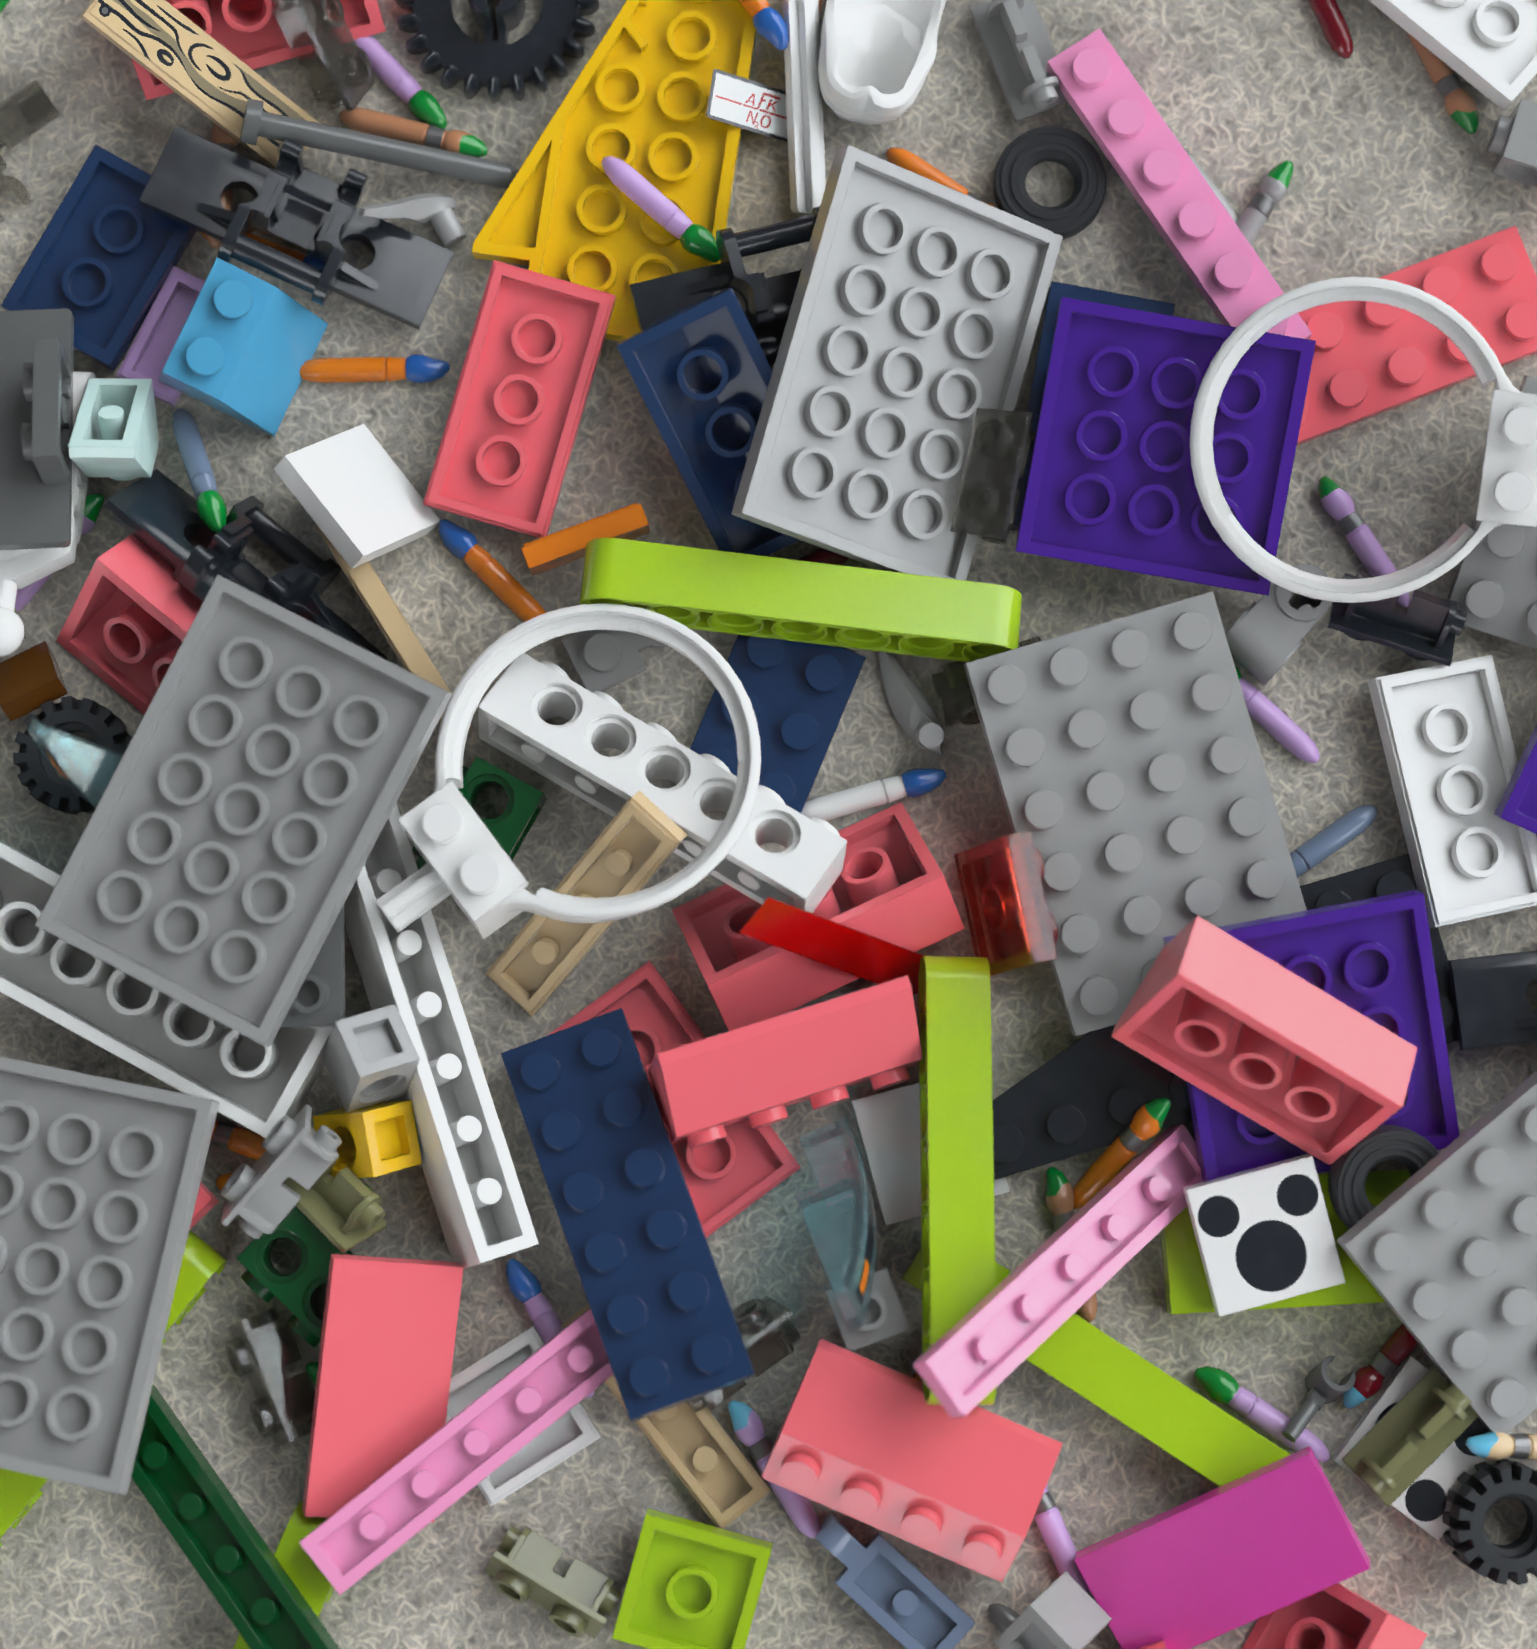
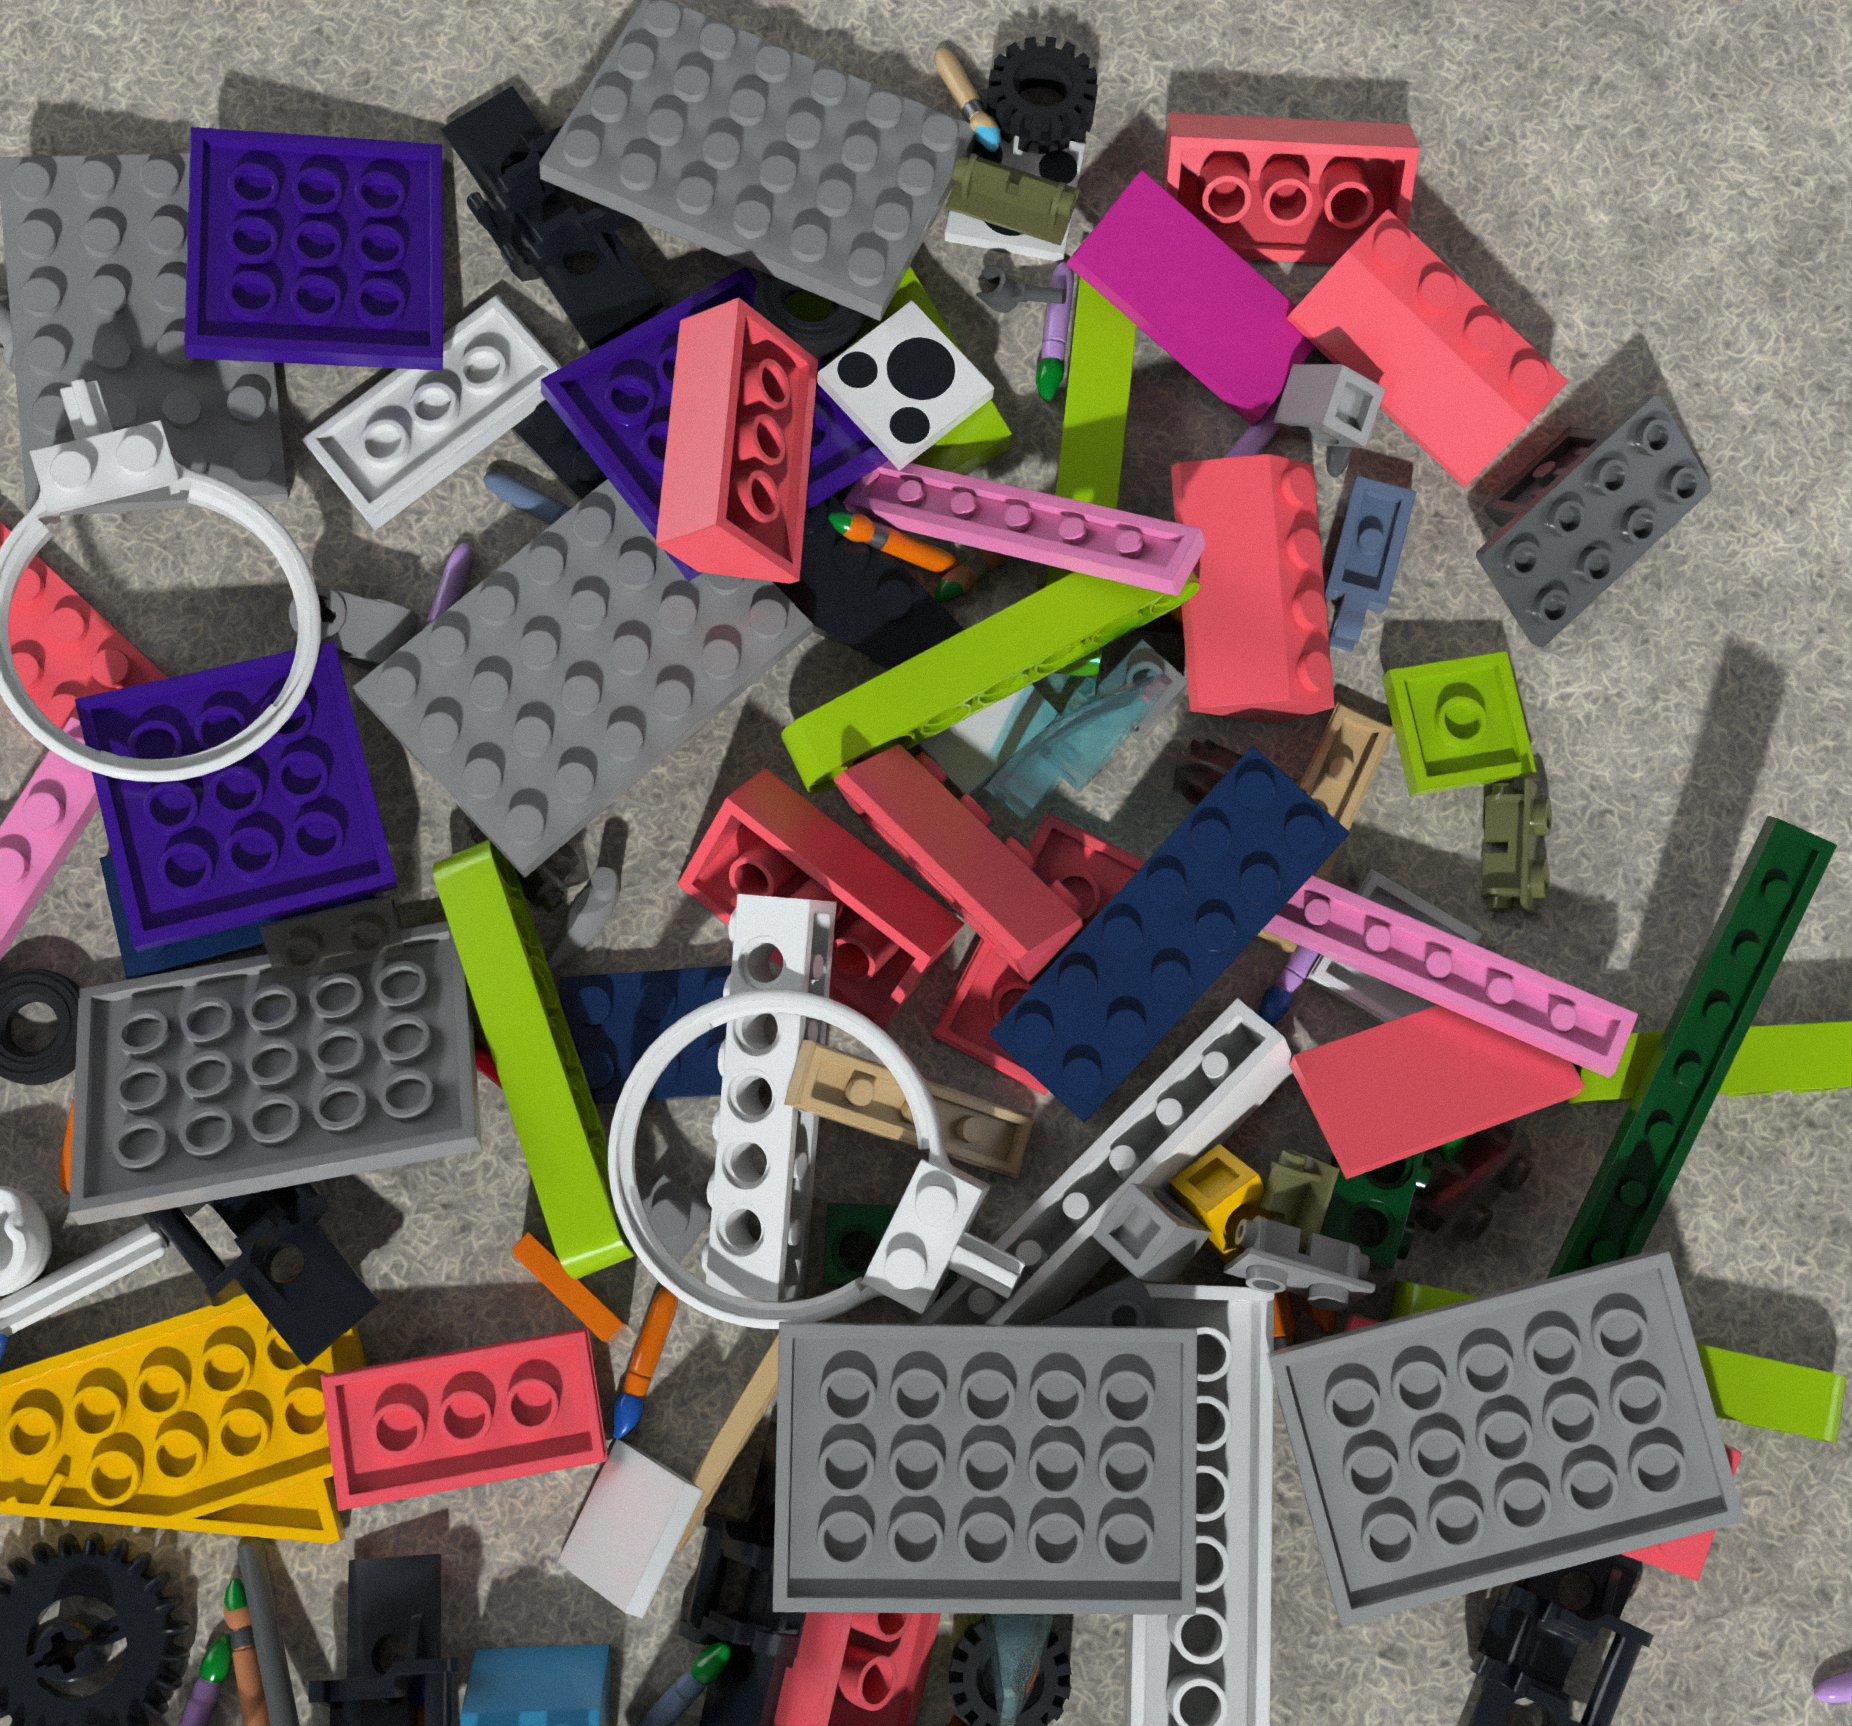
camera: 120 degrees left, 5 degrees down
(414, 368) = (480, 1540): orange piece -> none
(422, 209) = (320, 1613): light grey bar -> none
(692, 236) = (230, 1330): lavender piece -> none
(706, 393) = (382, 1229): dark blue slope -> none
(748, 105) = (77, 1343): white sticker -> none
(751, 1433) = (1297, 743): lavender piece -> none
(832, 943) = (837, 864): red sticker -> none
(911, 783) = (682, 911): white piece -> none
(1007, 903) = (724, 736): clear red plate -> none
(1360, 537) = (245, 599): lavender piece -> none
(1383, 1363) = (962, 254): dark red piece -> none
(1421, 630) = (308, 508): black hinge -> none

